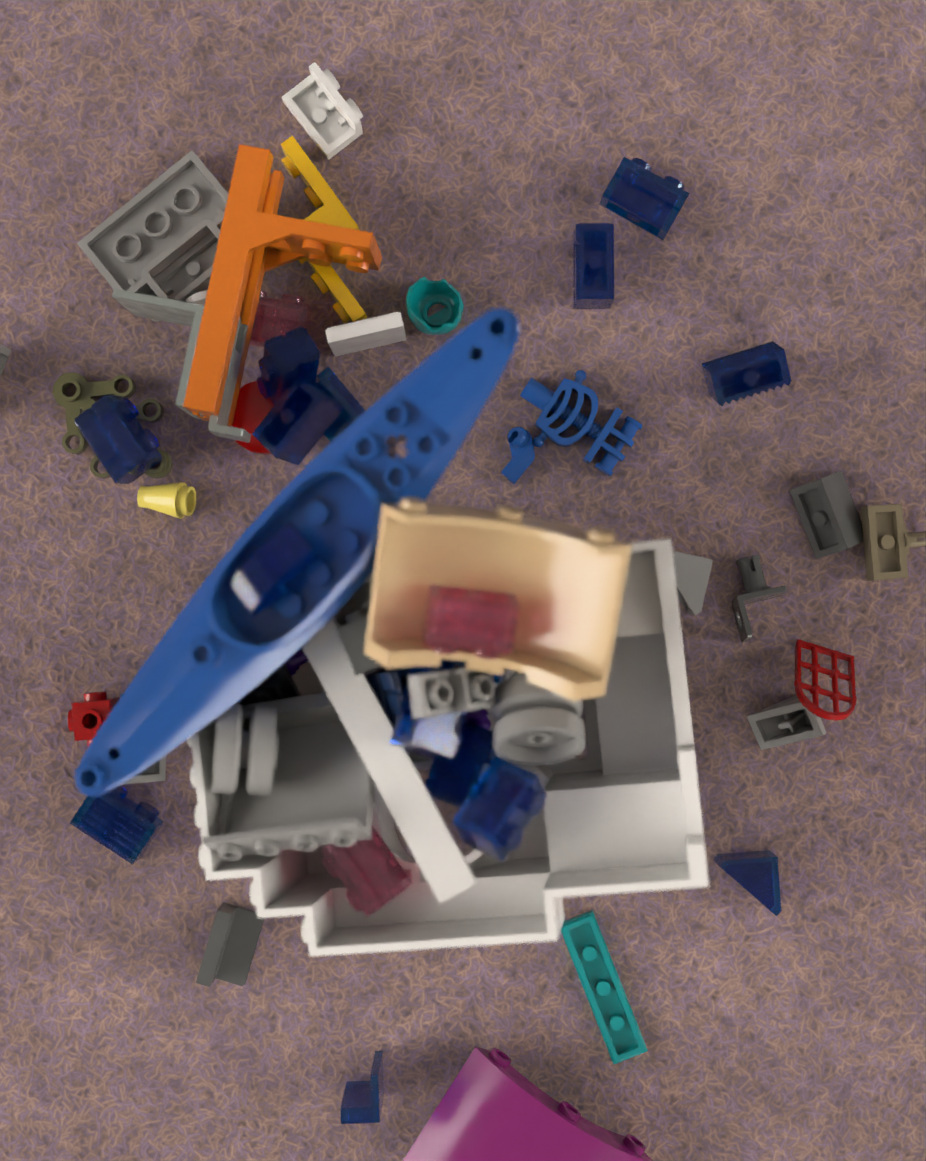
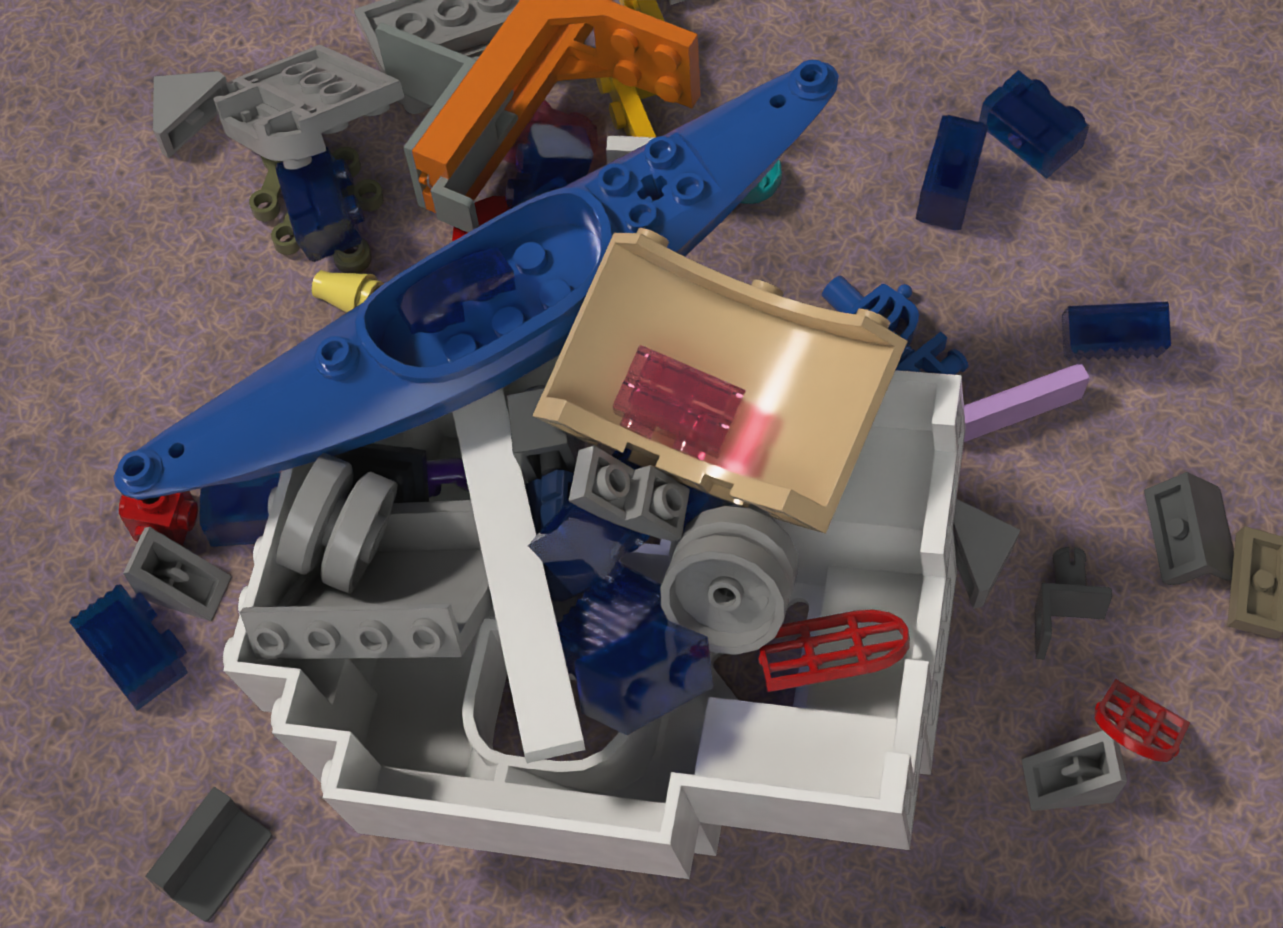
camera: 20 degrees right, 25 degrees down
(73, 356) = (296, 99): none -> light grey plate
(367, 872) = (438, 732): clear pink brick -> none
(641, 744) = (815, 675): none -> red window
(685, 451) = (1025, 401): none -> lavender tile

